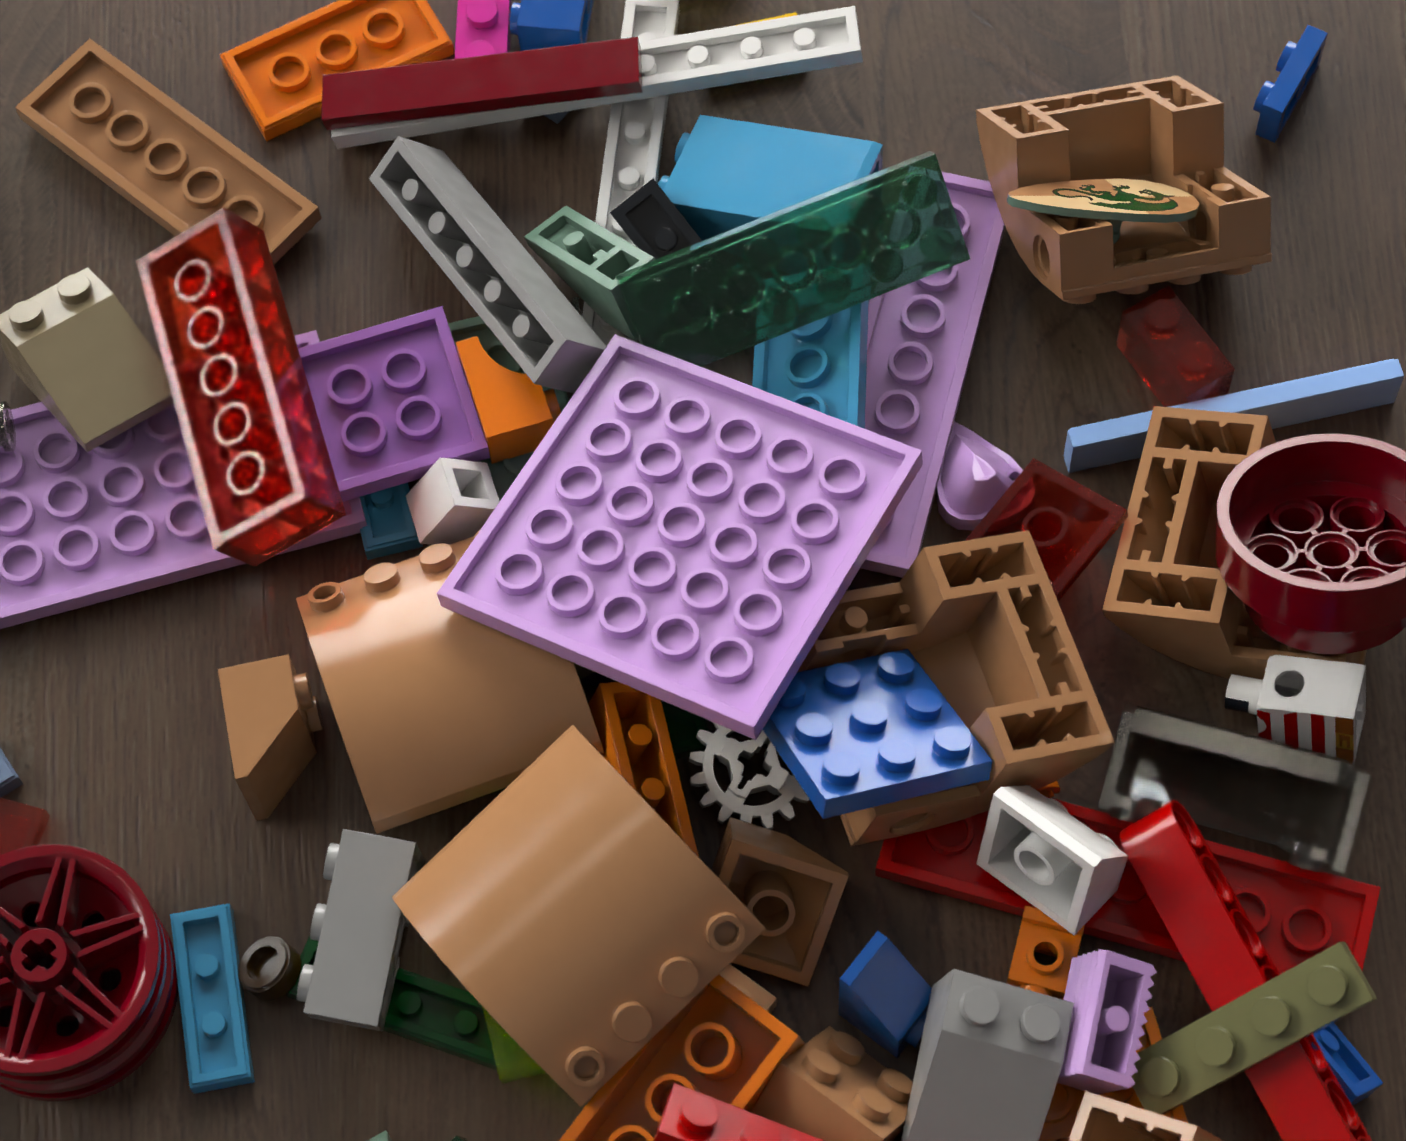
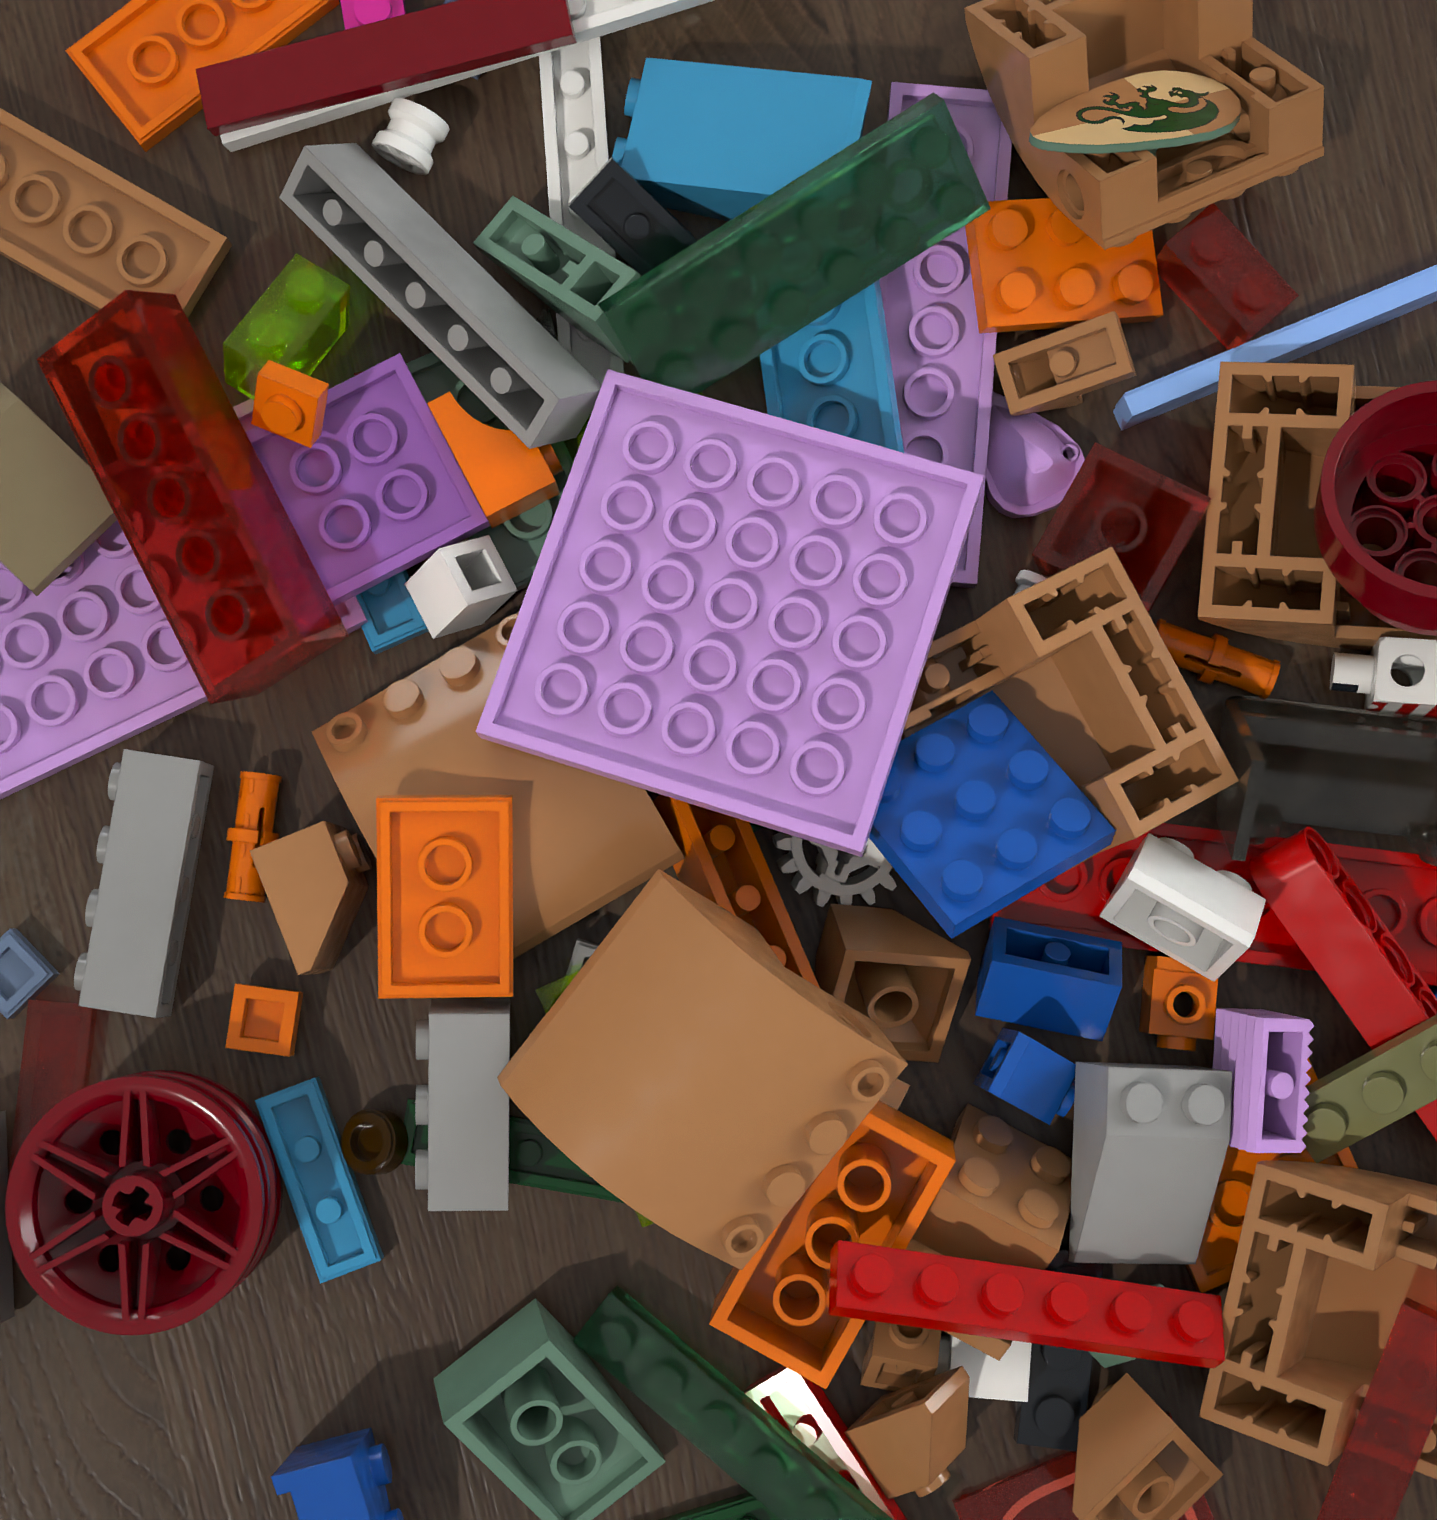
camera: 15 degrees left, 20 degrees up
(118, 711) = (144, 884): none -> light grey brick
(195, 844) = (264, 1019): none -> orange plate
(209, 719) = (252, 829): none -> orange pin
(339, 324) = (289, 403): none -> orange plate
(350, 282) = (289, 325): none -> clear neon green brick
(380, 733) = (444, 896): none -> orange tile
(490, 153) = (410, 136): none -> white wheel
(922, 912) = (1049, 978): none -> blue brick
(1015, 401) = (1064, 365): none -> medium nougat slope
(1020, 328) = (1048, 274): none -> orange plate
(1156, 685) = (1218, 660): none -> orange pin

